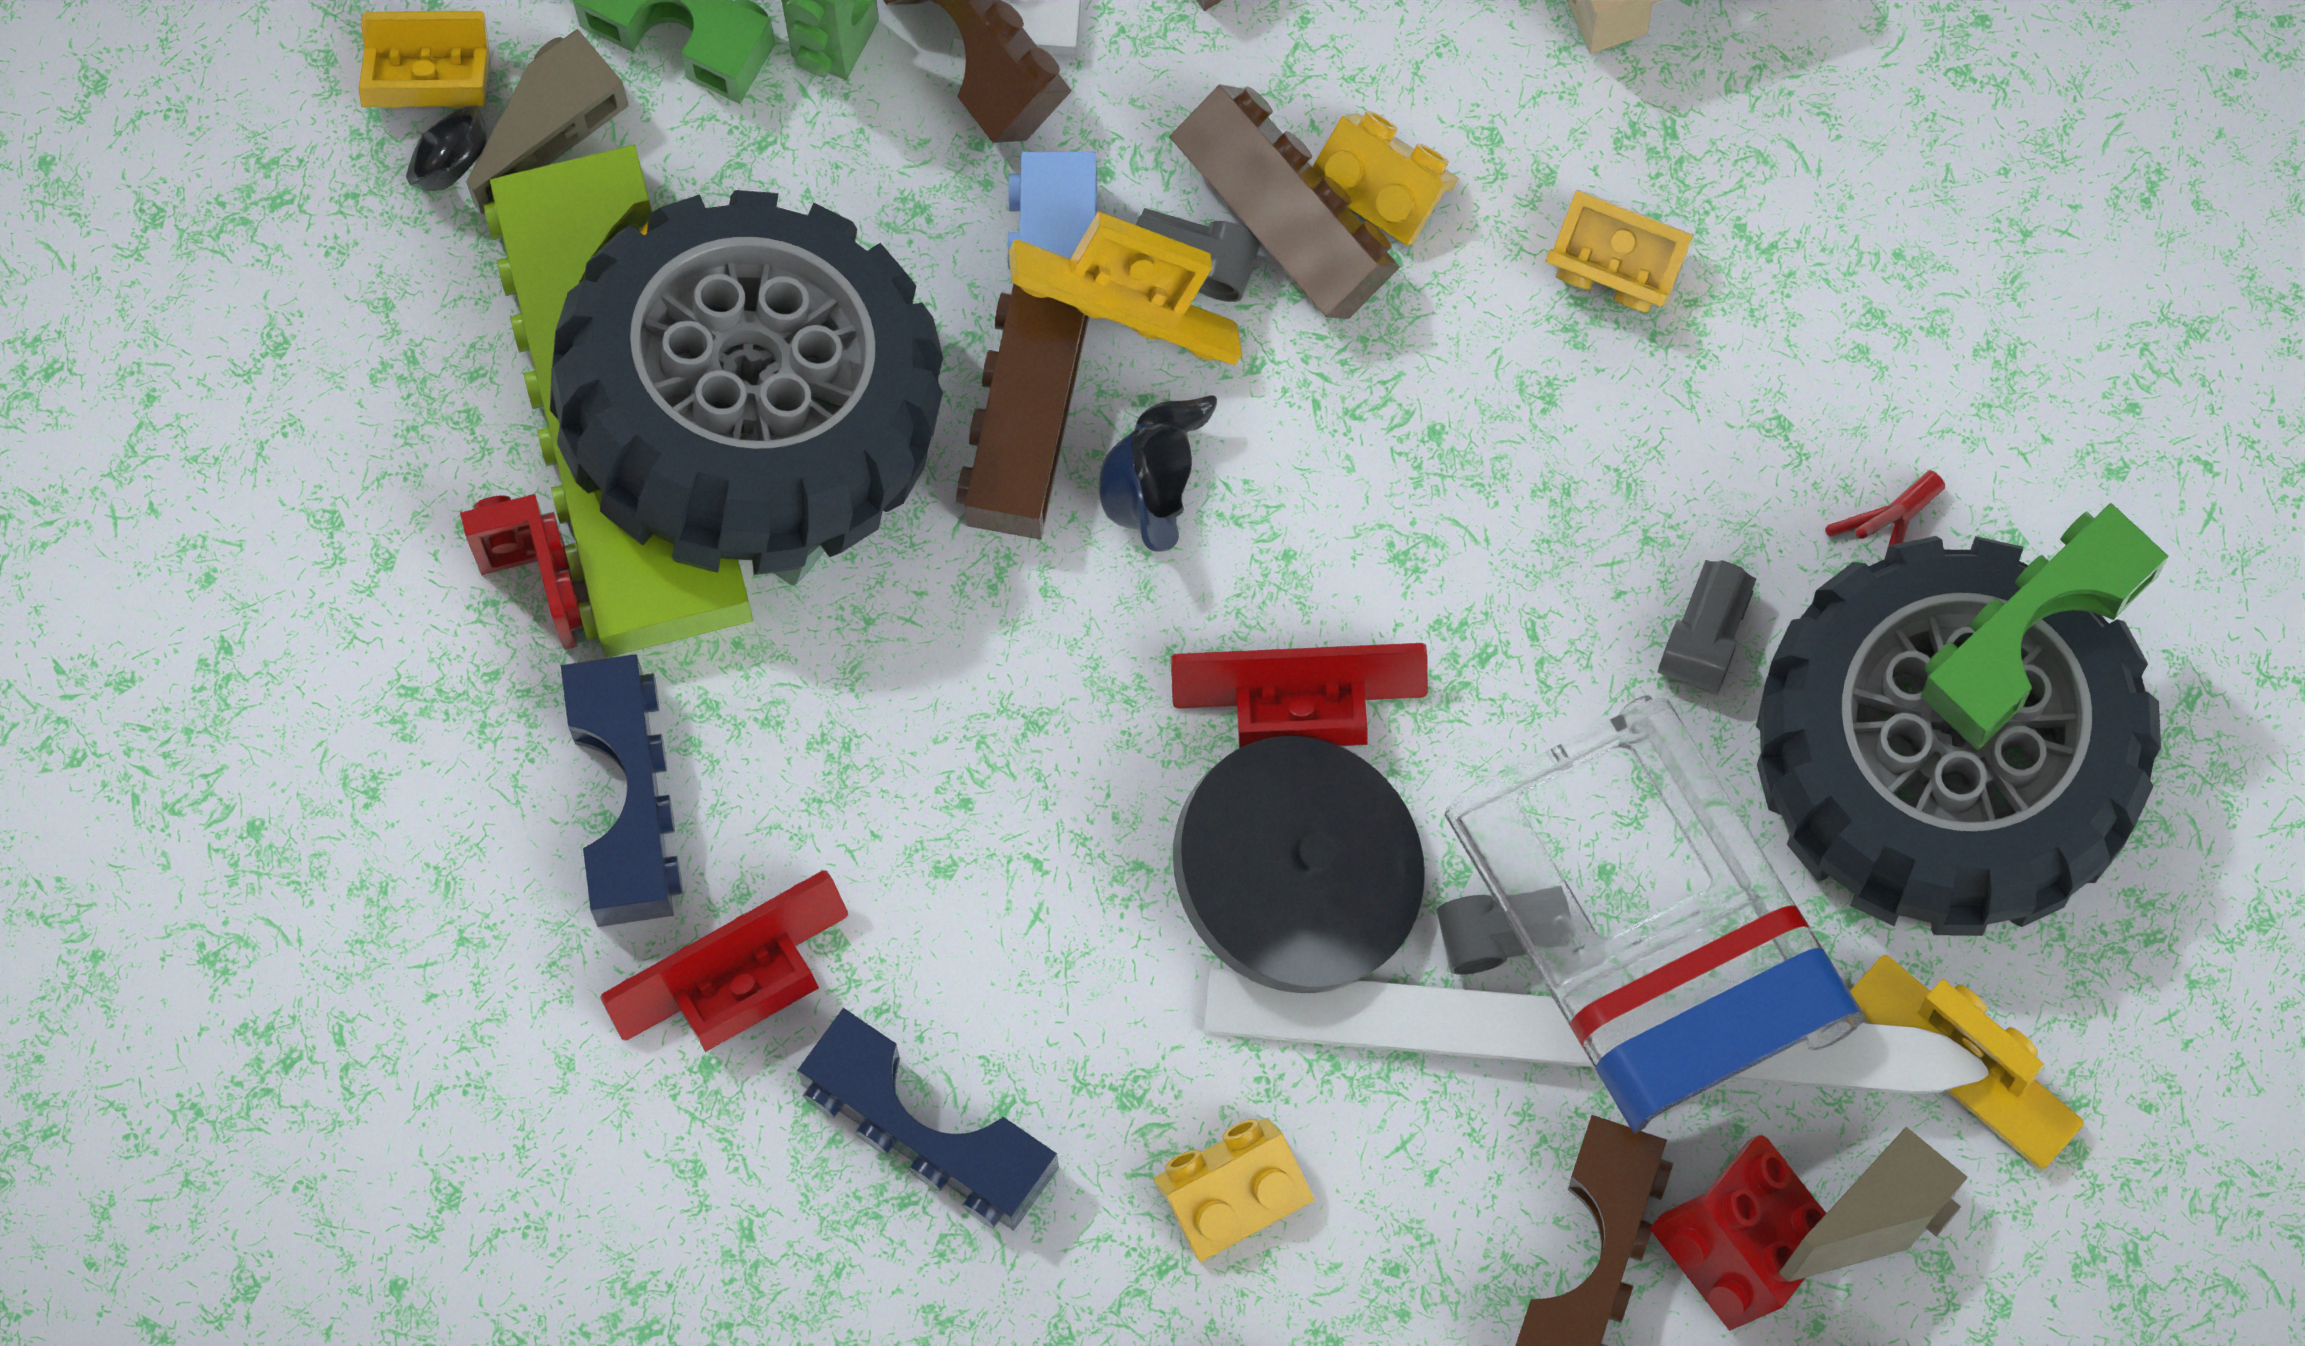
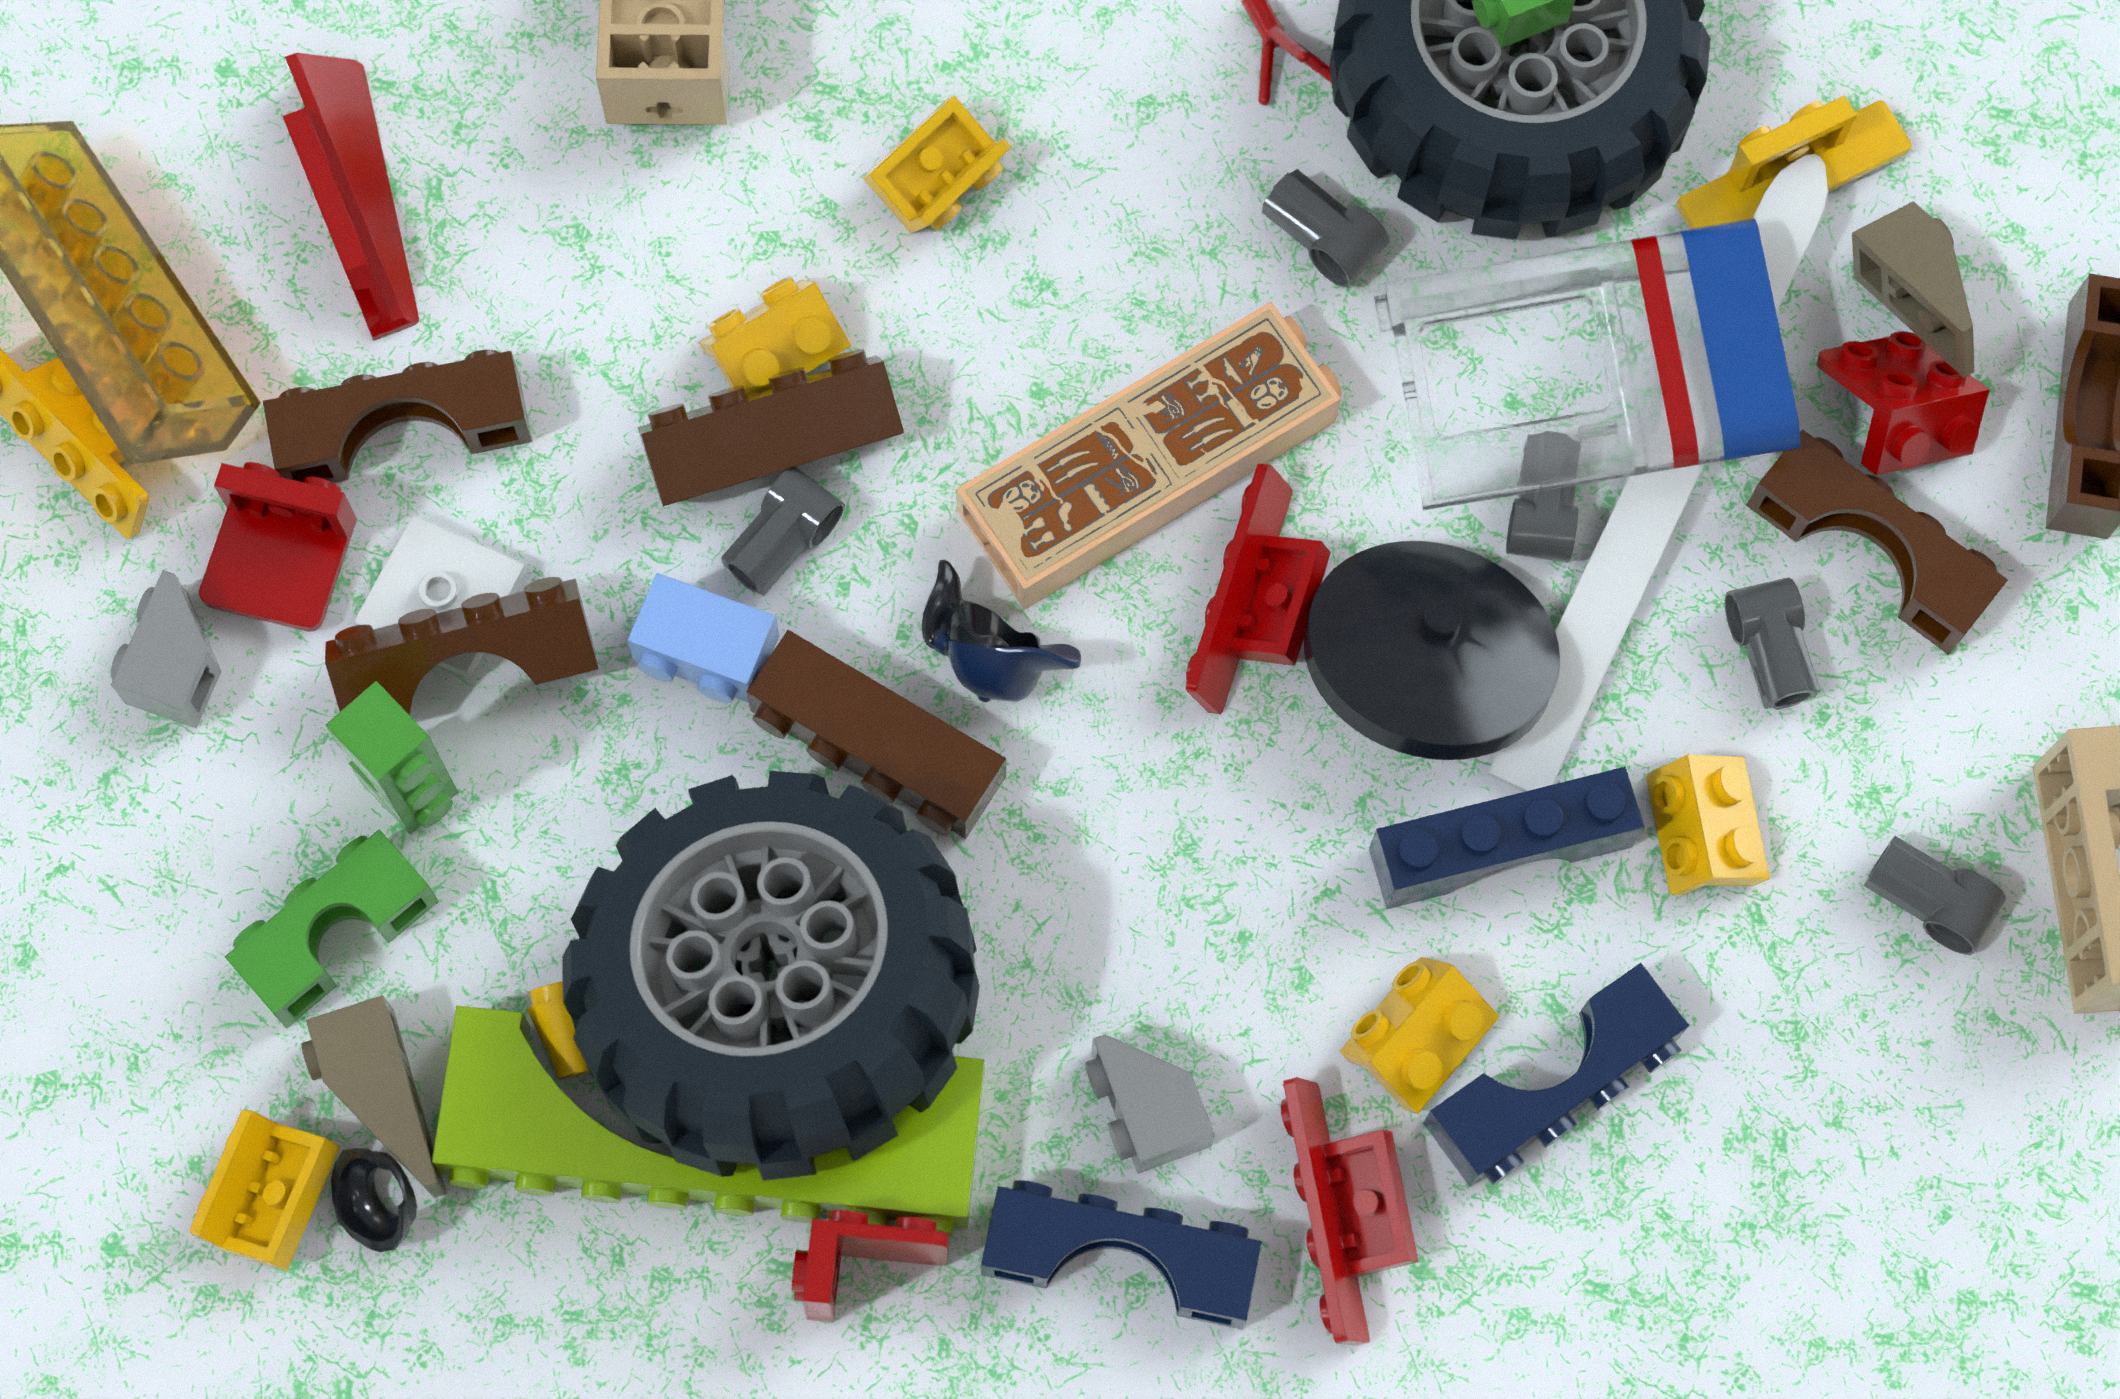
camera: 75 degrees left, 0 degrees up
(766, 769) = (1153, 1103): none -> light grey slope
(925, 985) = (1420, 1031): none -> yellow bracket
(1132, 280) = (806, 585): yellow bracket -> none
(1143, 995) = (1551, 822): none -> dark blue arch
(1403, 548) = (1149, 454): none -> brick
(1458, 1181) = (1770, 626): none -> dark grey piece

